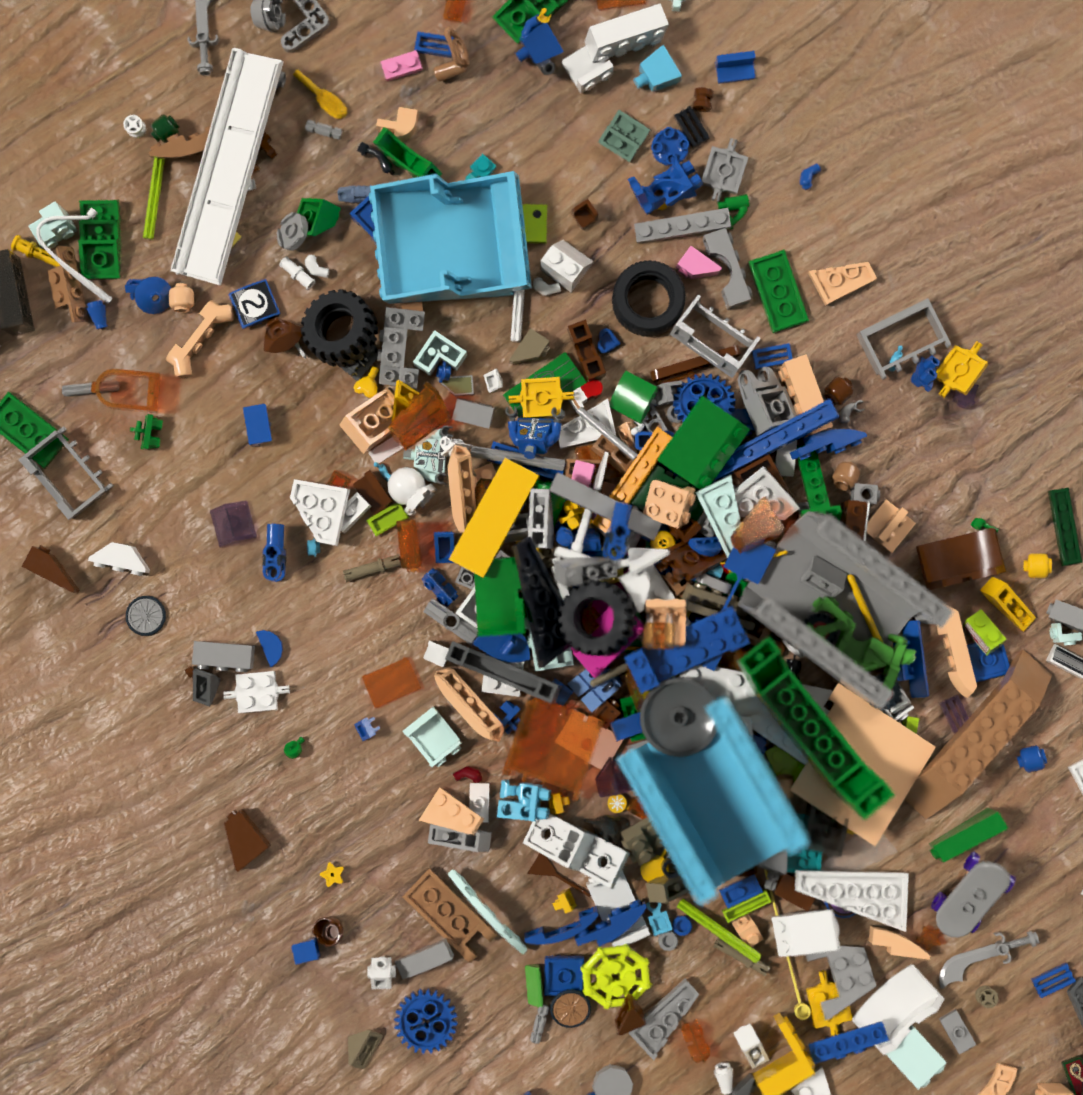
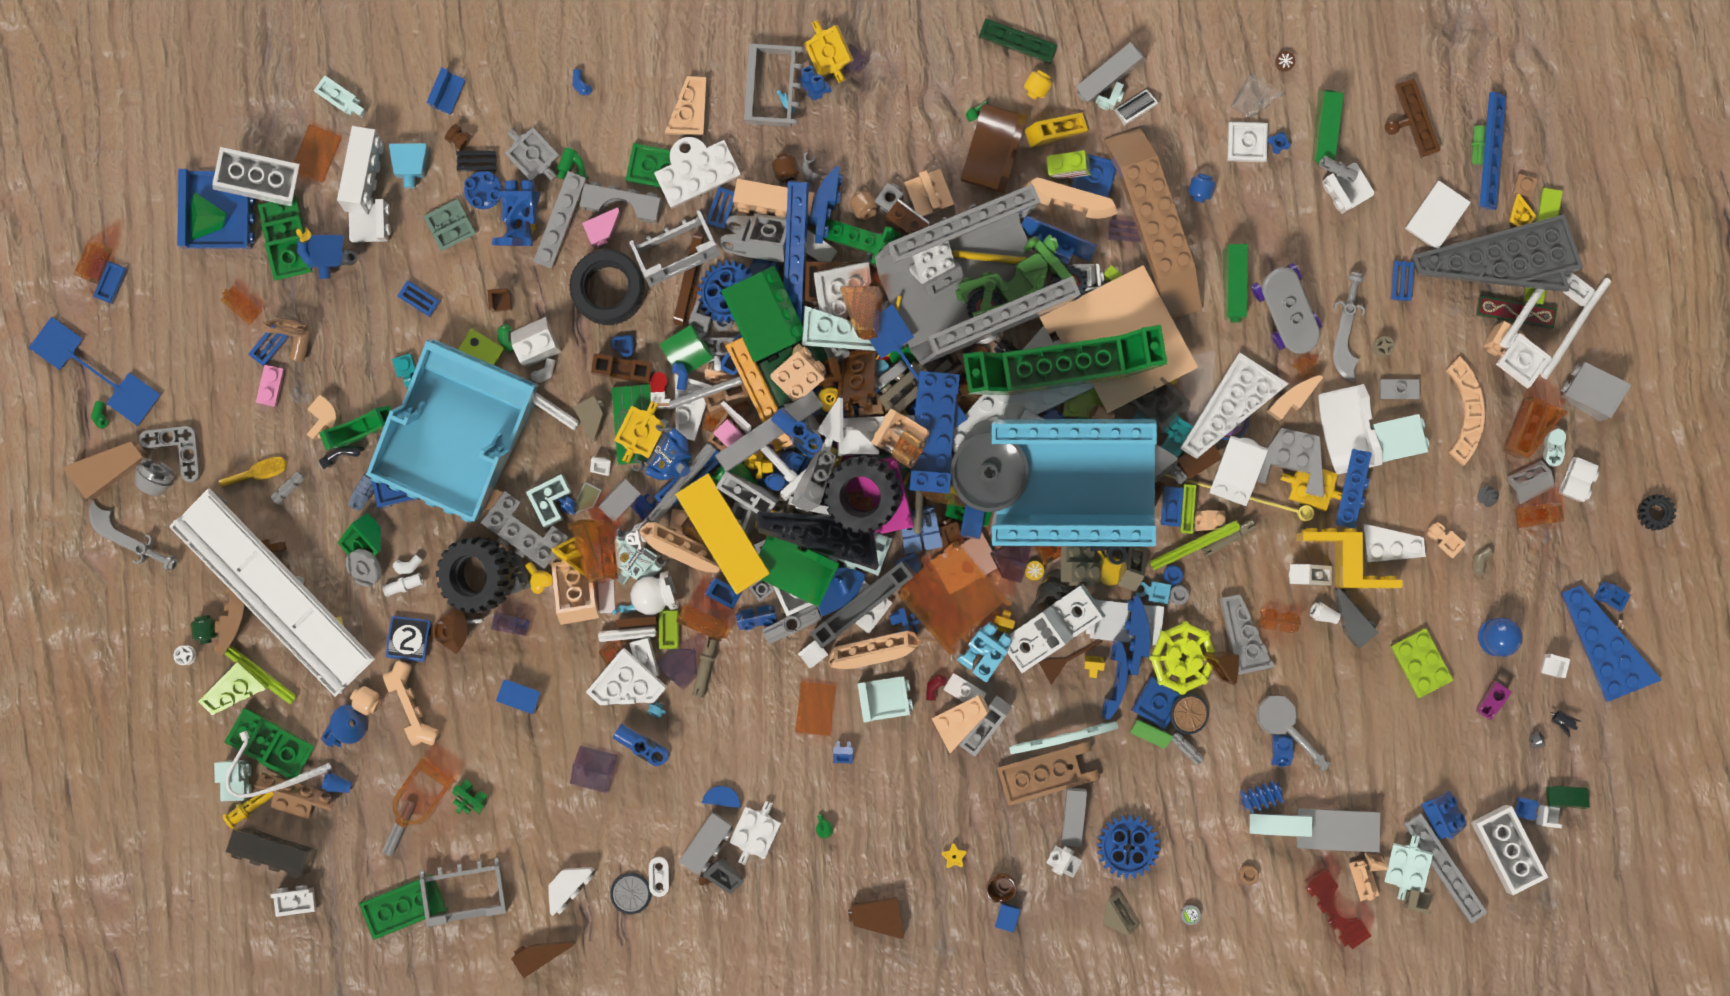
camera: 55 degrees left, 0 degrees up
(130, 181) = (233, 687): none -> lime wing
(173, 630) = (658, 876): none -> white plate
(315, 382) = (510, 624): none -> clear purple leg
(361, 546) = (679, 666): none -> slope
(363, 485) = (624, 634): none -> white axle
(478, 436) = (642, 506): none -> clear blue tile
(545, 162) = (432, 307): none -> blue tile
(554, 236) = (503, 337): none -> green arm
(609, 406) = (682, 375): none -> blue arm
(706, 546) = (855, 362): blue tile -> none
(792, 316) = (695, 171): none -> white plate
(832, 563) = (932, 262): none -> white bracket

